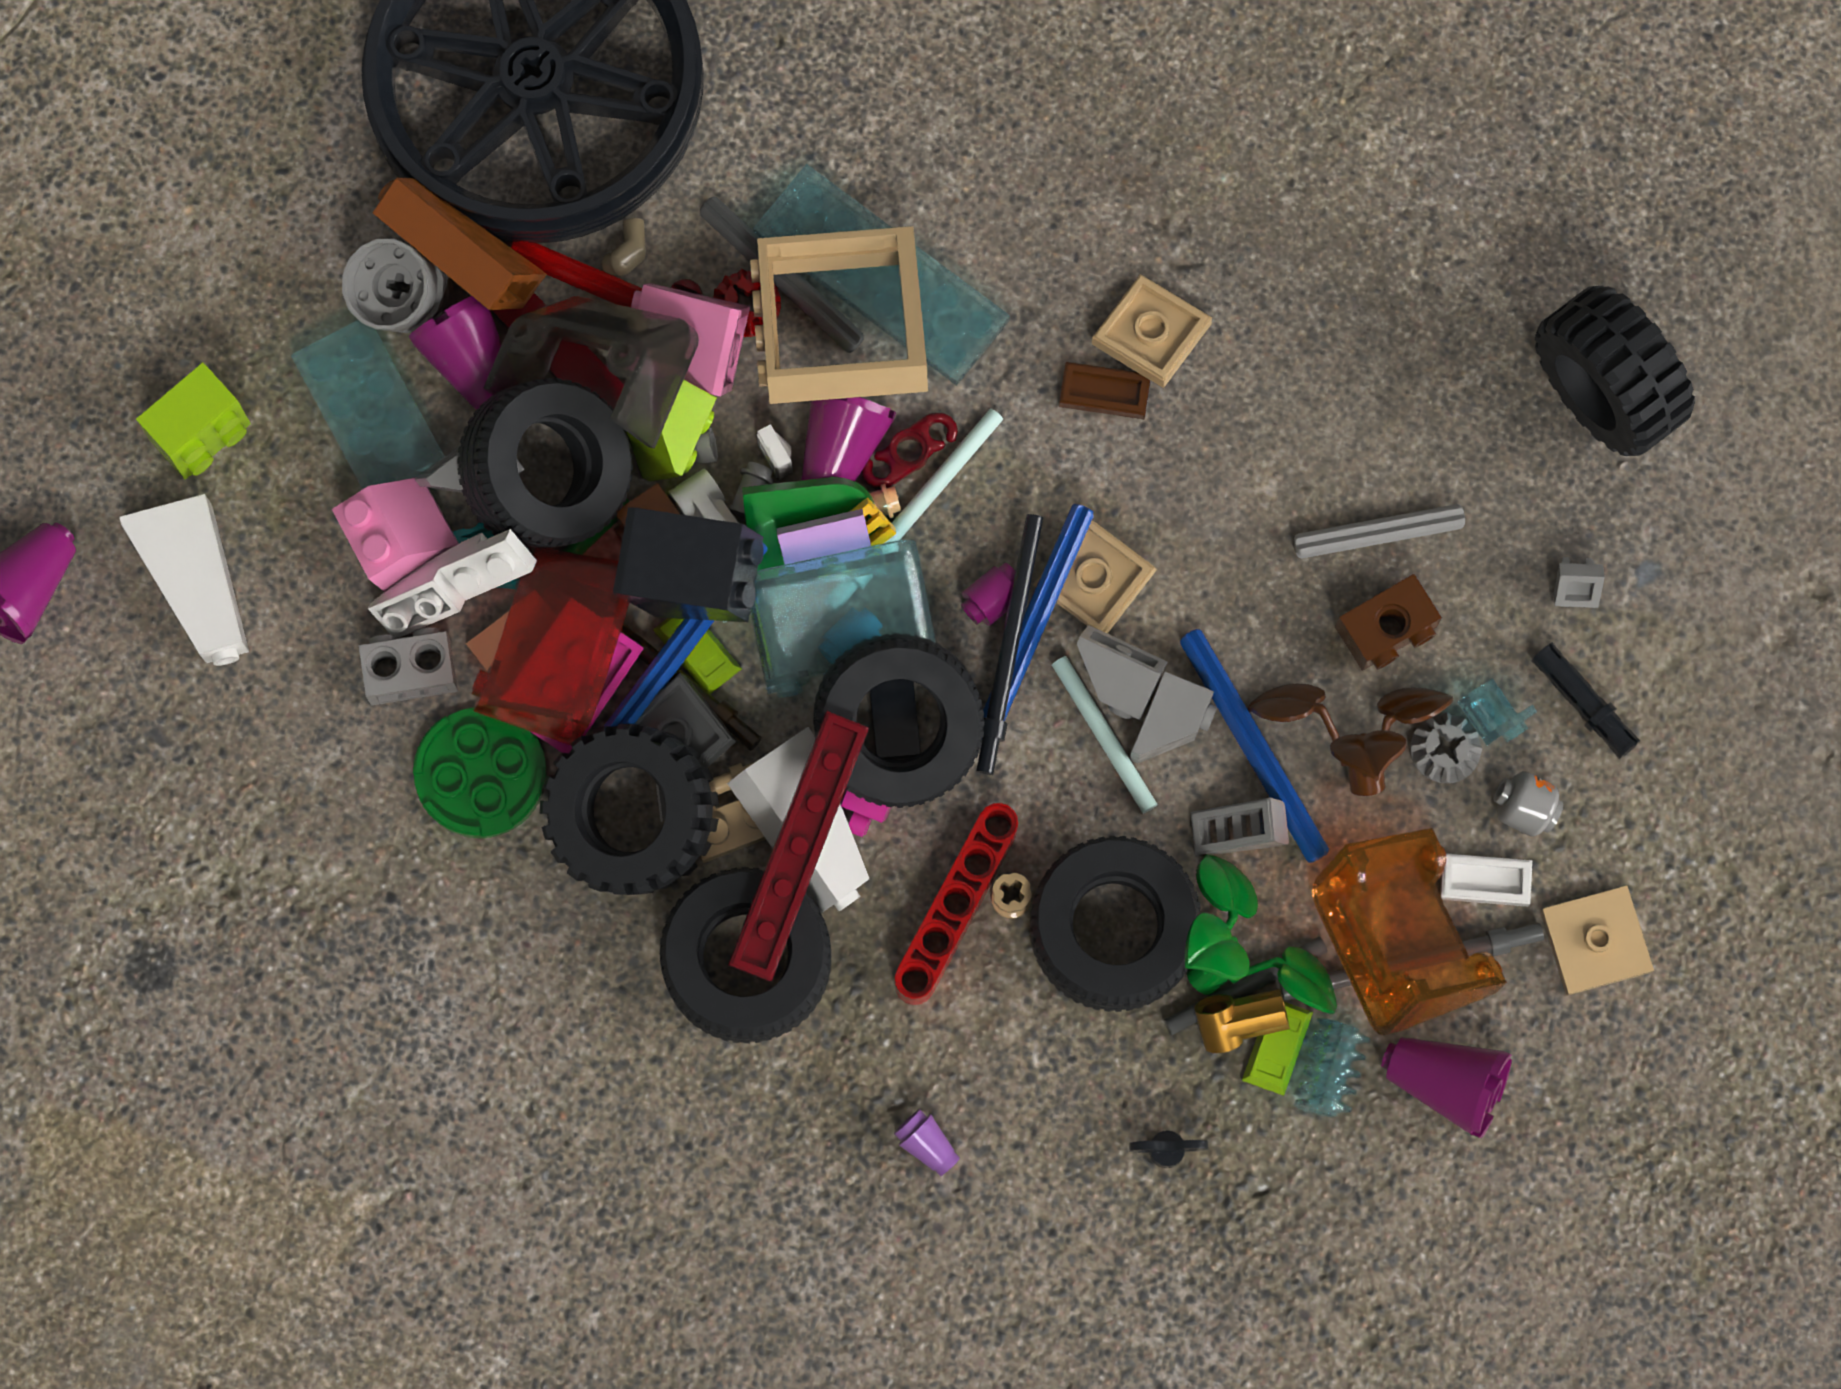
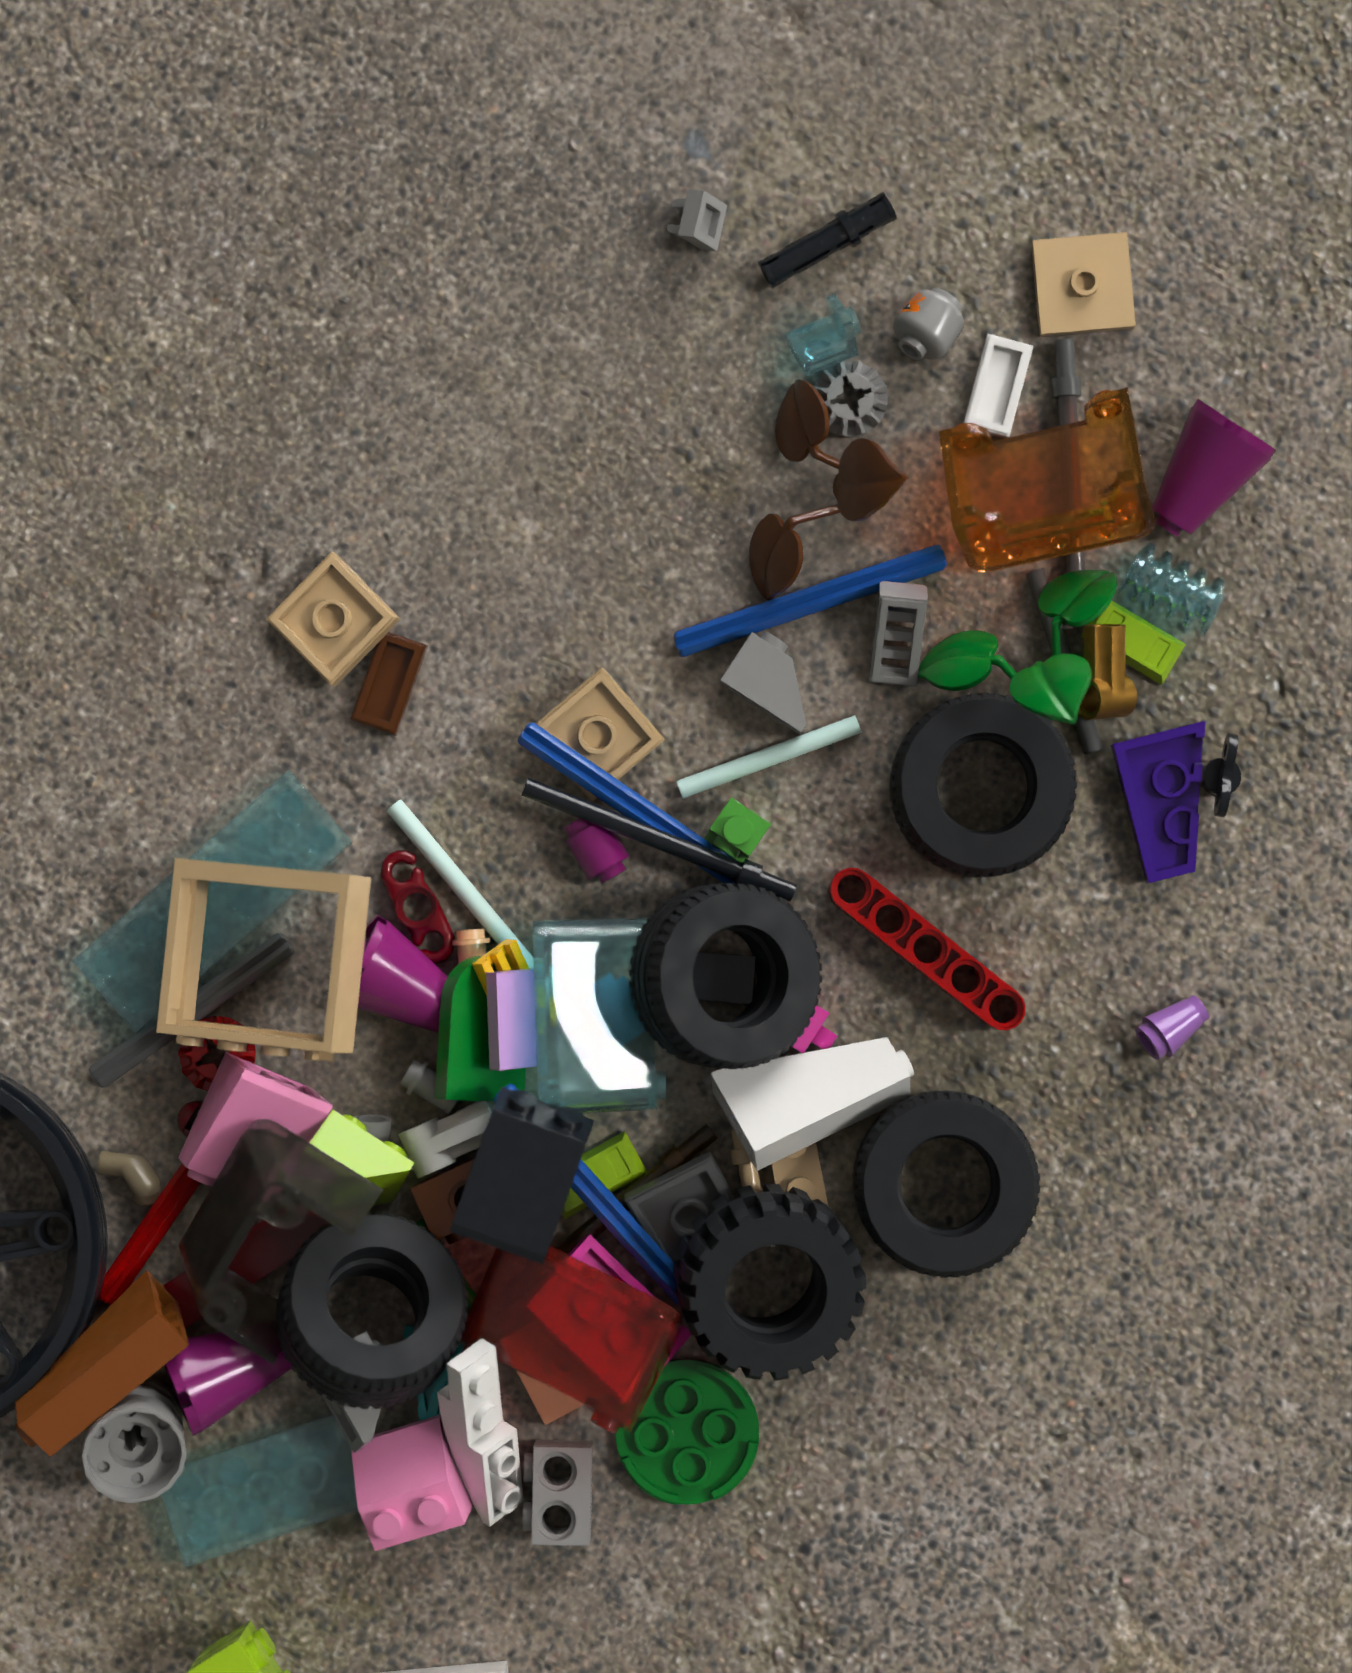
camera: 80 degrees left, 10 degrees up
(776, 451) = (393, 1051): white tile -> none
(798, 846) = (853, 1109): dark red tile -> none
(1008, 882) = (912, 888): tan bush -> none
(1032, 715) = (737, 830): none -> bright green brick
(1120, 672) = (709, 727): light grey slope -> none
(1137, 1096) = (1161, 794): none -> dark purple wing
(1379, 531) = (601, 419): light grey axle -> none
(1405, 603) = (700, 401): reddish brown brick -> none
(1615, 370) = (485, 127): black tyre -> none

